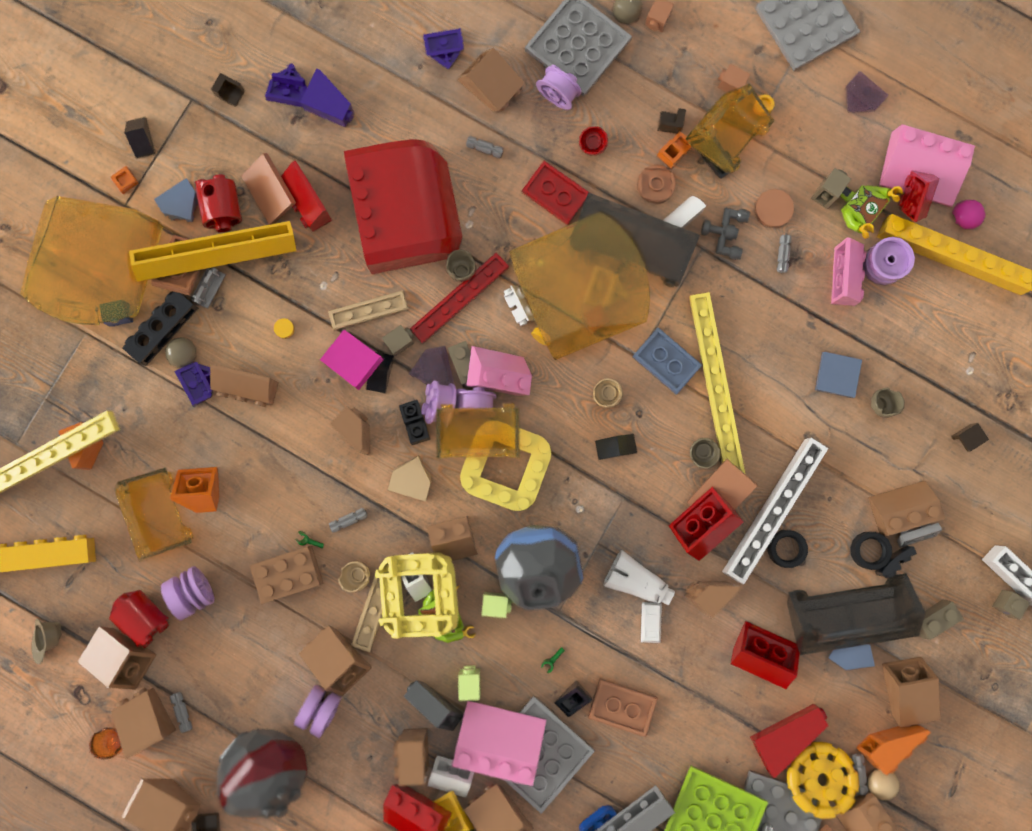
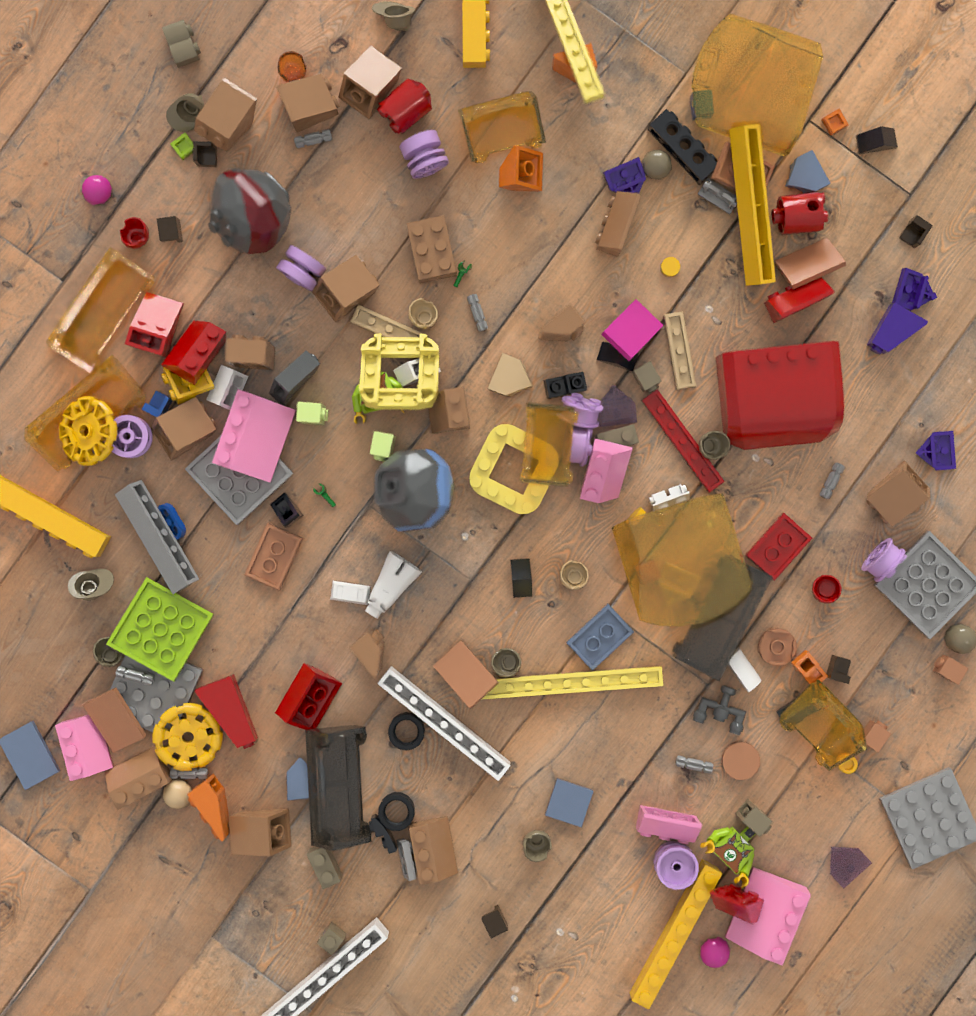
camera: 95 degrees right, 5 degrees up
(705, 524) = (438, 654): red slope -> none

